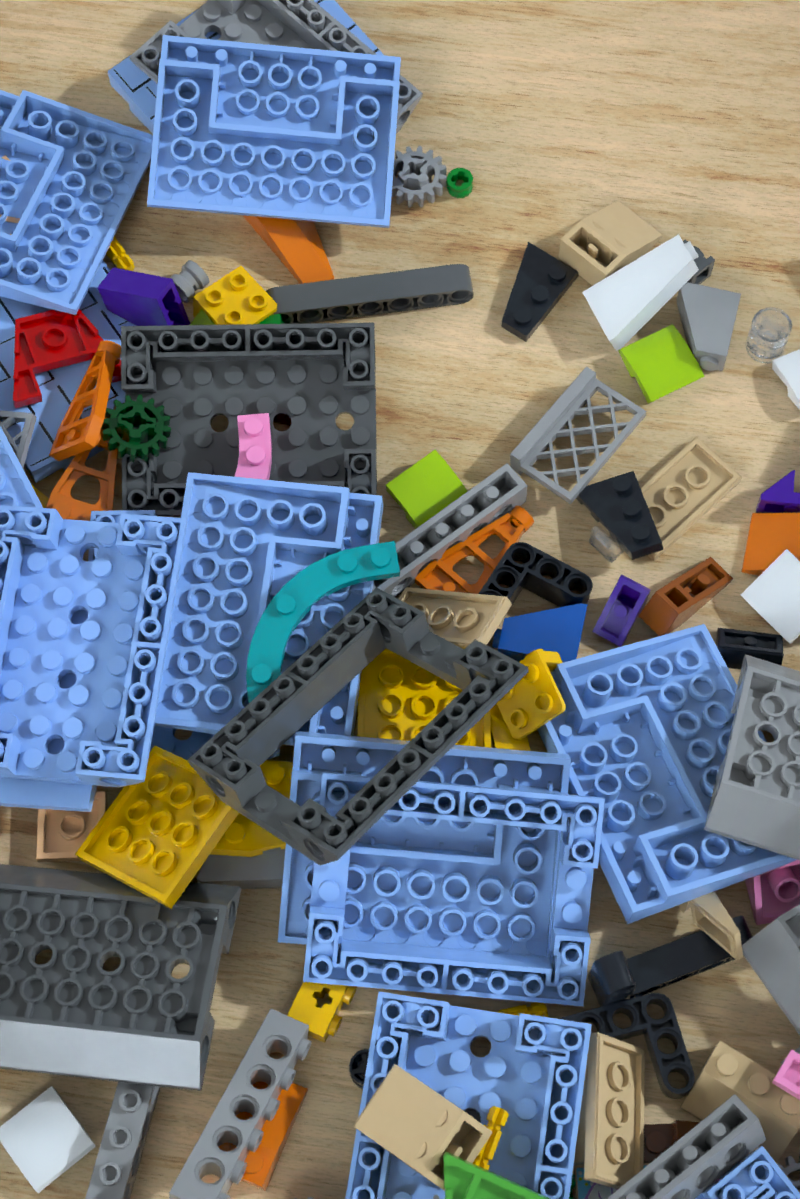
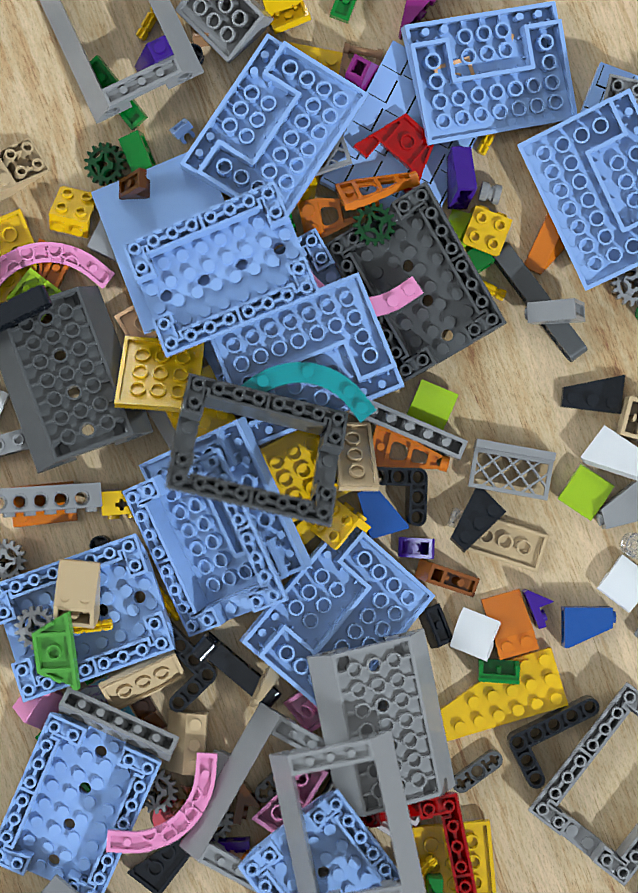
camera: 60 degrees right, 20 degrees up
(395, 269) = (555, 311): none -> light grey slope

